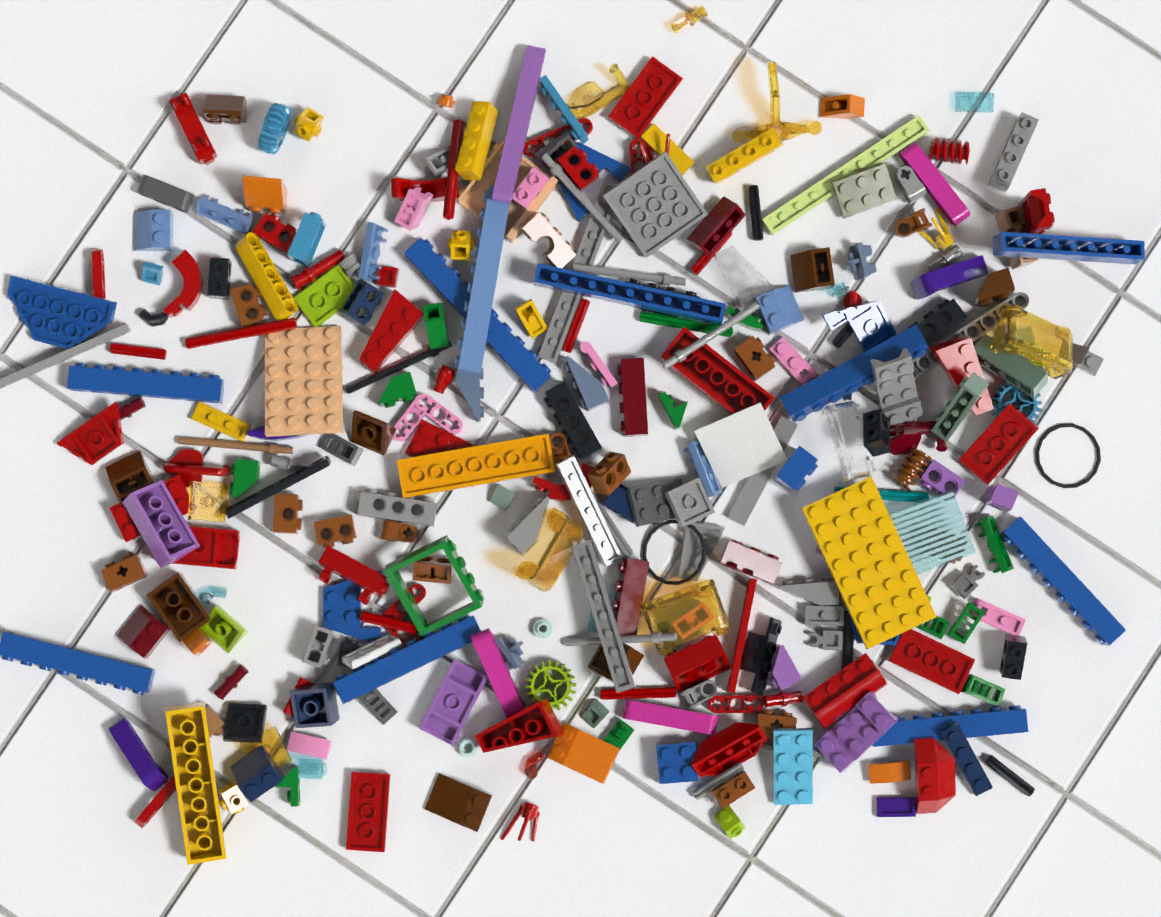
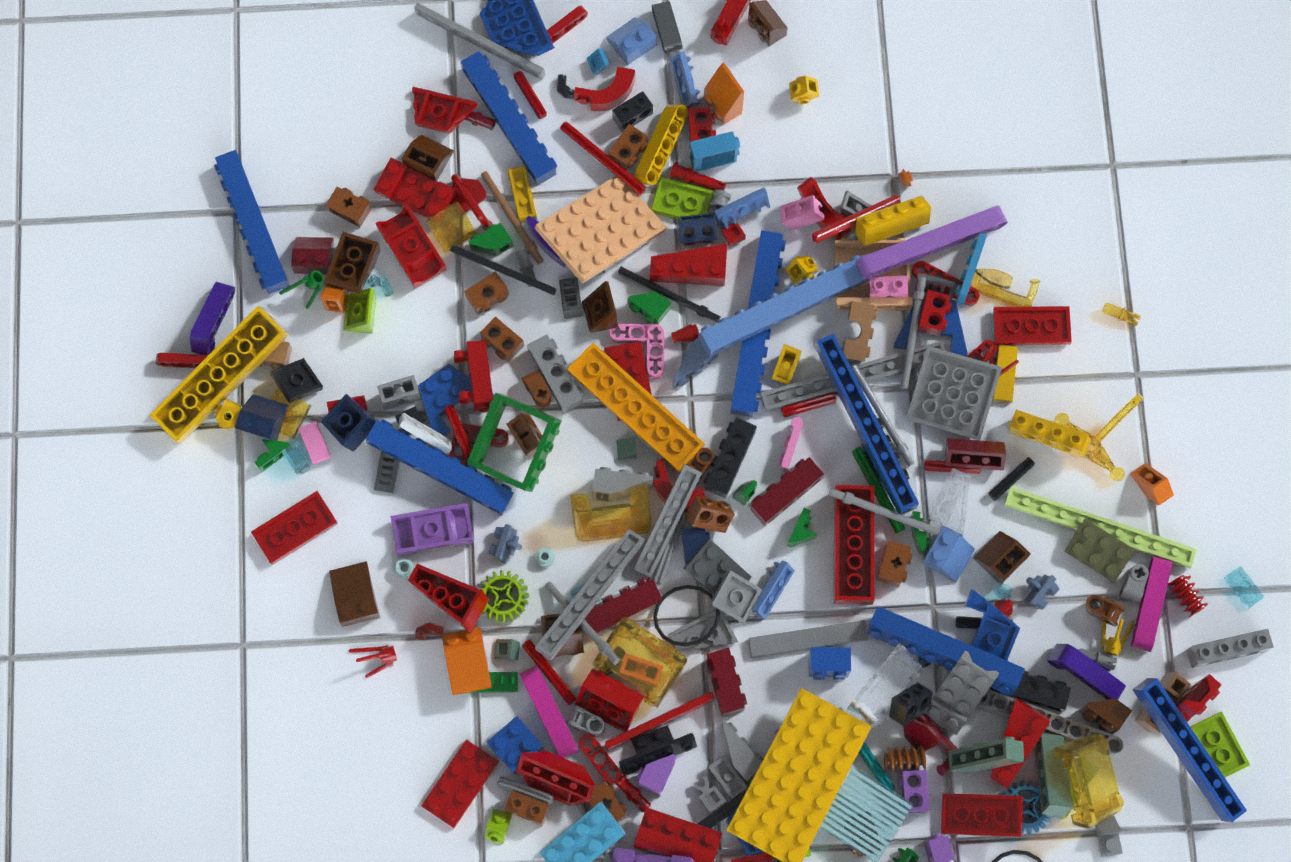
camera: 55 degrees right, 10 degrees down
(160, 523) = (406, 201): medium lavender slope -> none
(171, 650) = (312, 281): none -> green plant
(231, 681) = (322, 347): dark red pin -> none
(274, 128) = (780, 66): dark azure gear -> none
(436, 325) = (723, 296): green slope -> none
(497, 672) = (482, 543): dark pink beam -> none
(590, 388) = (766, 453): sand blue slope -> none
(609, 430) = (745, 492): none -> green slope
(674, 827) = (460, 784): none -> red plate
(740, 445) = (814, 603): white sticker -> none
(792, 361) = (916, 595): bright pink plate -> none
(1078, 219) = (1221, 744): none -> lime tile

